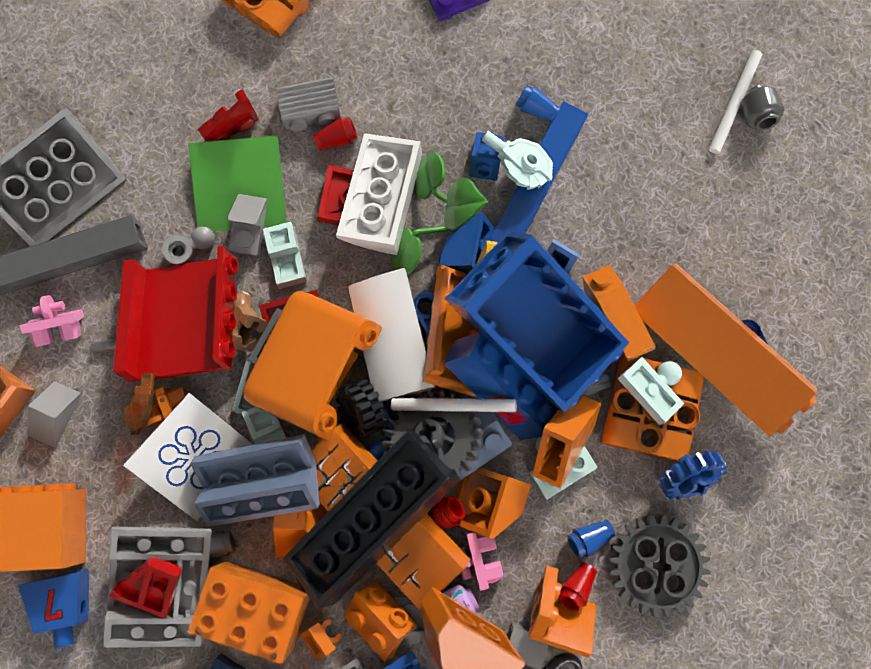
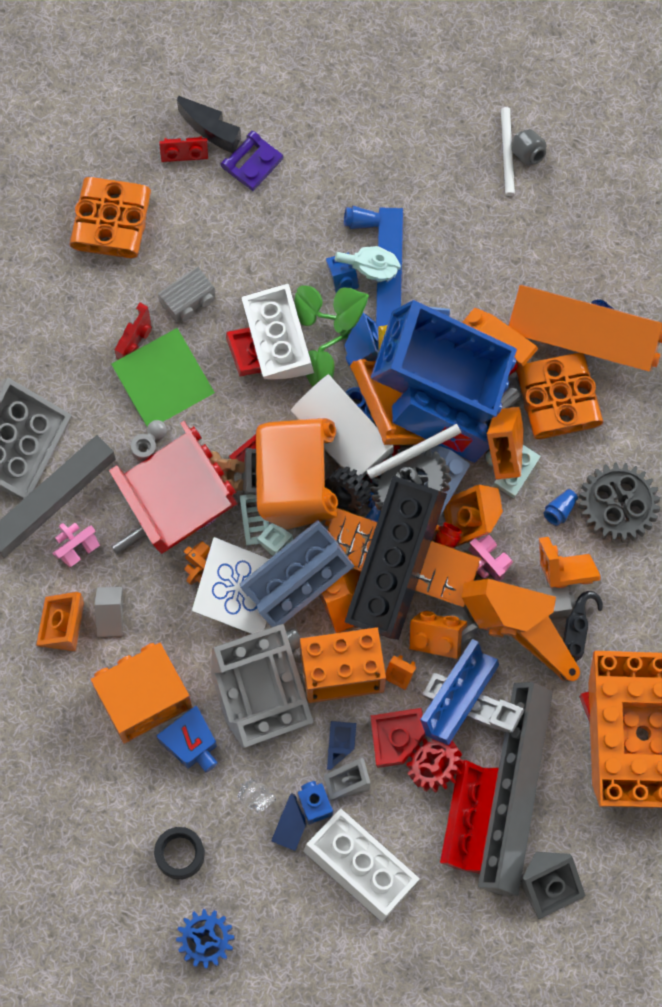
camera: 30 degrees left, 10 degrees down
(141, 404) = (181, 565): clear orange slope -> none
(150, 587) = (258, 684): red wing -> none
(248, 224) = (187, 403): light grey slope -> none
(285, 255) = (226, 414): light aqua slope -> none
(336, 134) = (219, 308): red cone -> none
(577, 587) = (569, 544): red cone -> none
(653, 388) = (551, 376): light aqua plate -> none
(693, 475) = (610, 425): blue gear -> none

